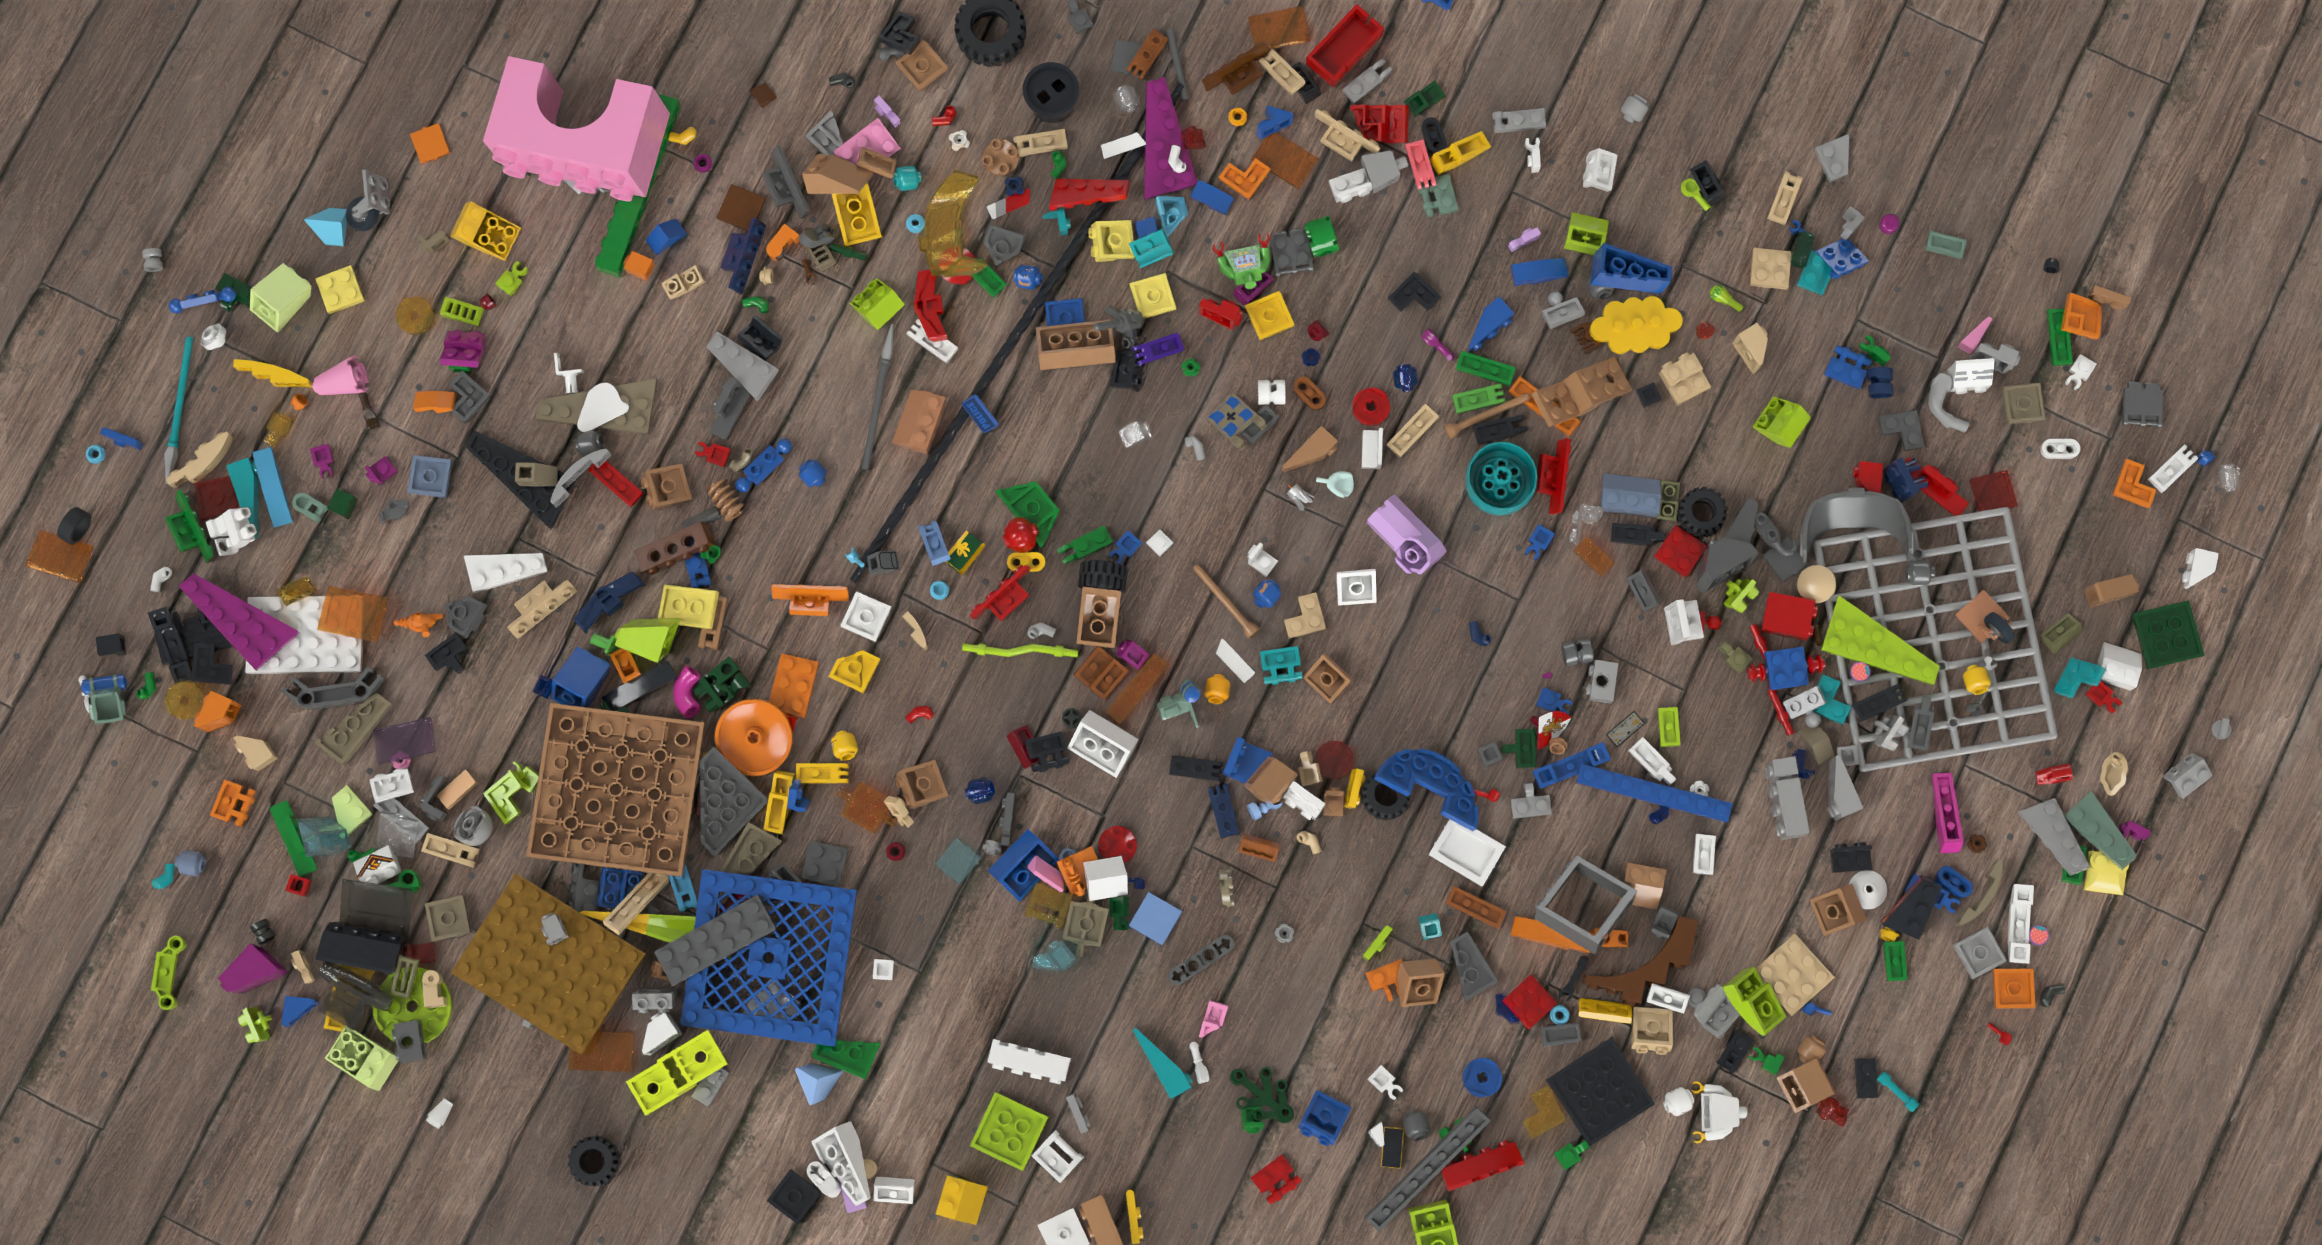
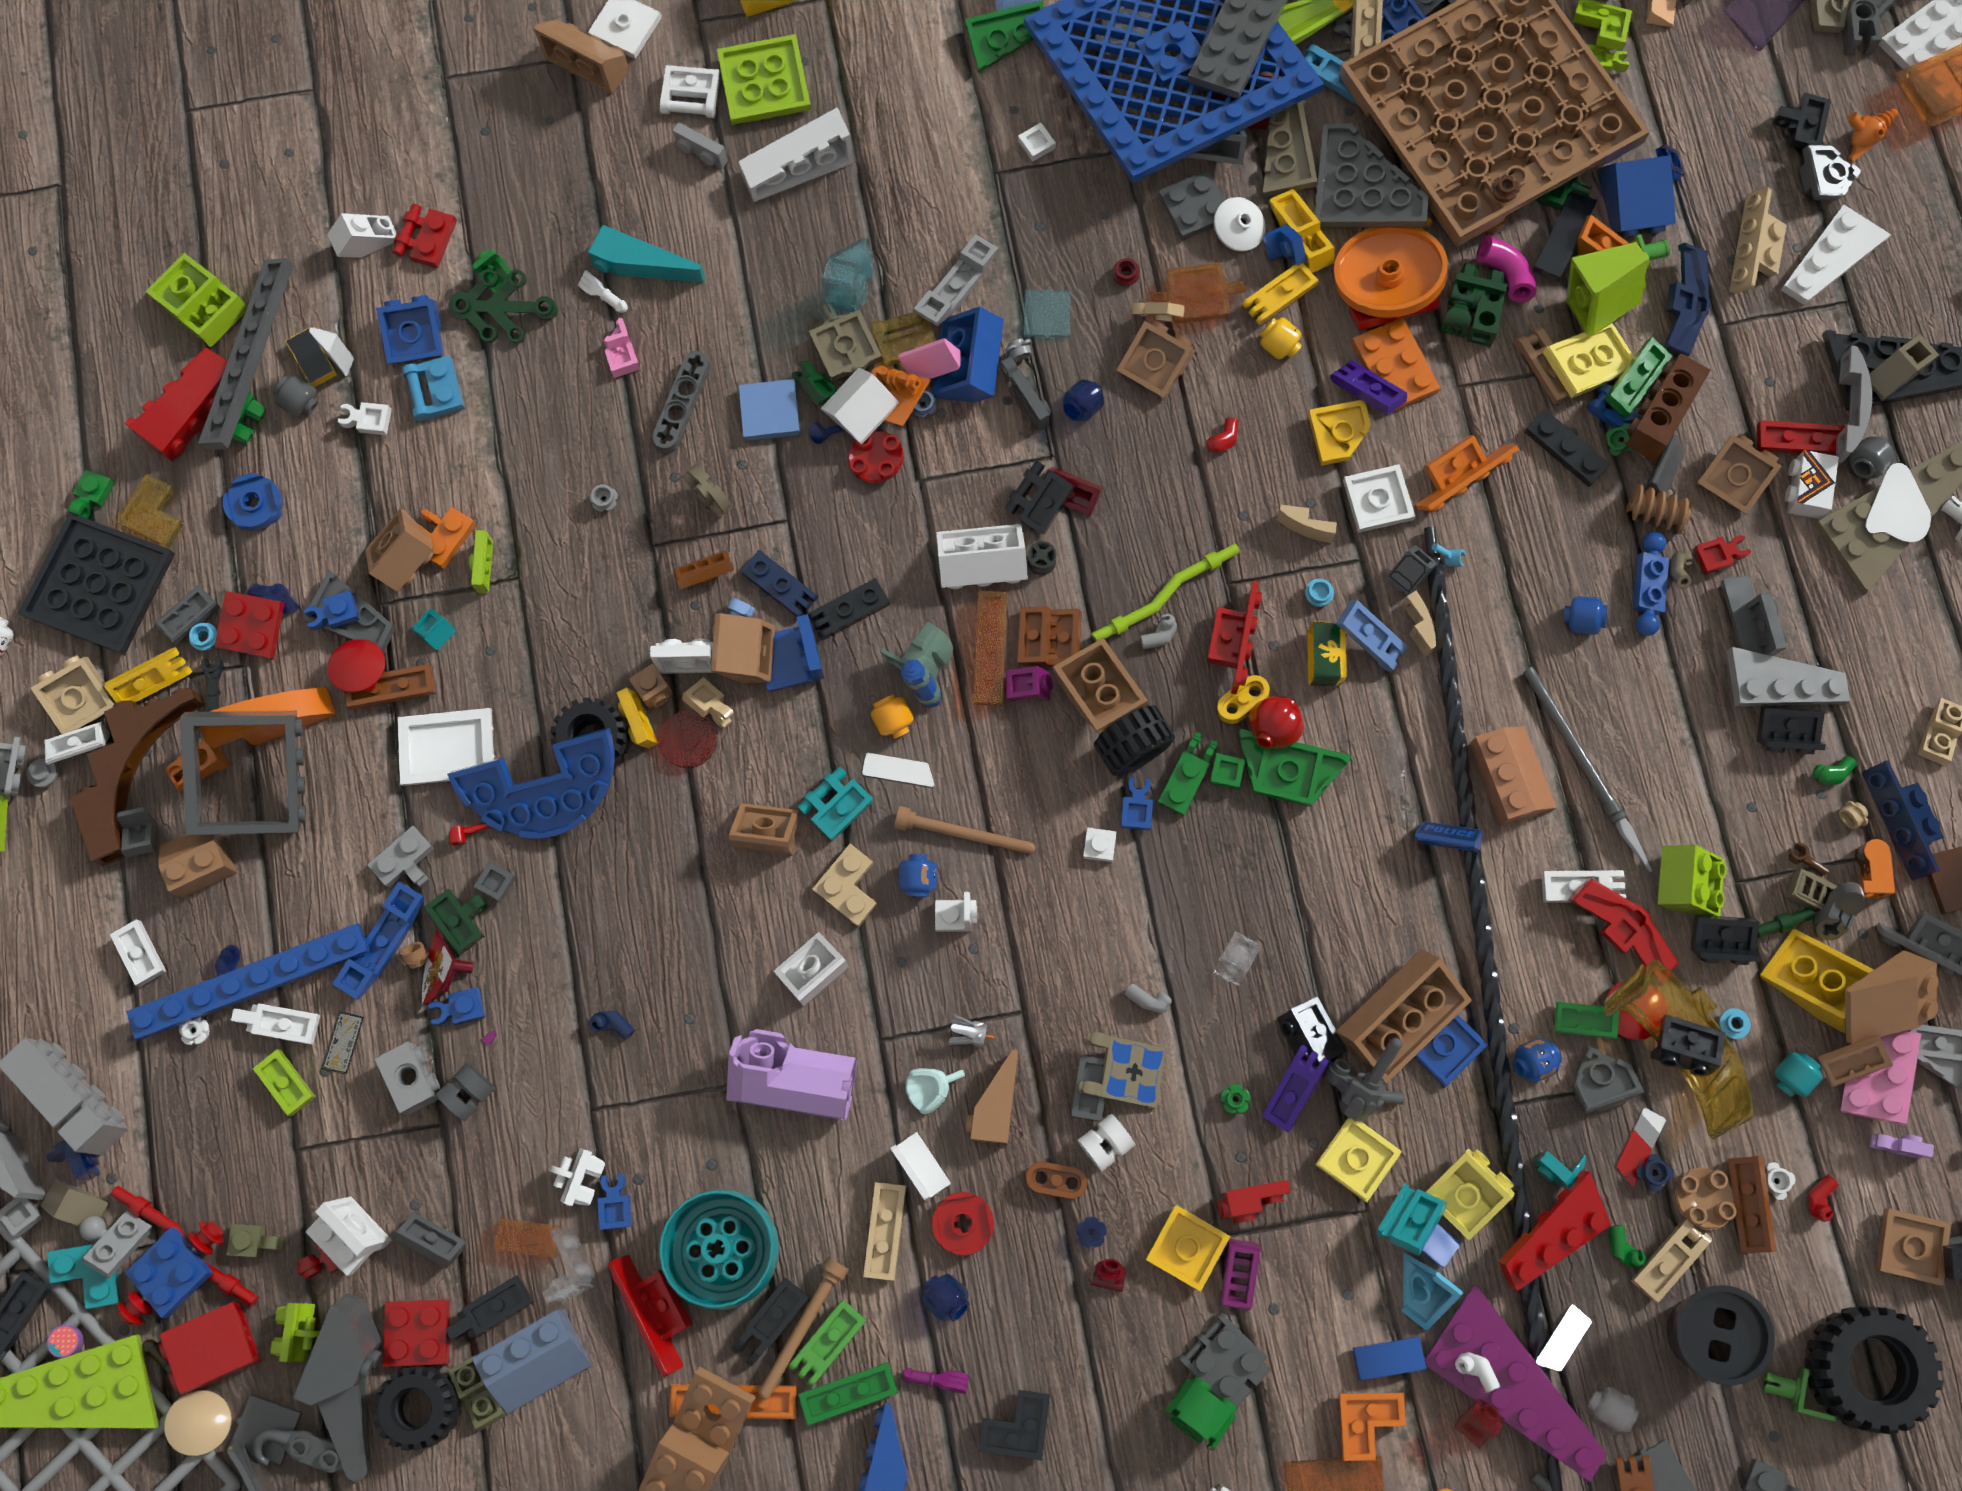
camera: 145 degrees right, 5 degrees down
(634, 453) = (1811, 484): none -> white brick
(661, 732) = (1505, 195): none -> reddish brown plate
(674, 576) = (1638, 377): none -> plate
(741, 570) = (1567, 448): none -> black plate
(815, 837) = (1232, 230): none -> white dish
(821, 680) = (1369, 387): none -> dark purple hinge
(885, 264) = (1725, 939): none -> black bracket
(902, 529) = (1423, 632): none -> tan slope
(949, 227) = (1689, 1046): none -> black bracket
(981, 138) = (1752, 1205): none -> dark orange plate
(995, 915) = (958, 282): none -> light grey slope
(1033, 46) = (1794, 1390): none -> bright green bracket
(1064, 531) = (1227, 771): none -> green plate
(1134, 1214) = (558, 89): yellow hinge -> none
(1244, 264) = (1273, 1293): bright green torso -> none
(1311, 840) = (648, 625): tan arm -> none
(1312, 1203) = (361, 234): none -> white slope
(1328, 1073) = (442, 386): none -> dark azure plate
(1475, 971) = (337, 611): none -> blue plate
(1486, 929) = (356, 666): none -> red dish
(1550, 570) = (574, 1191): none -> white hips

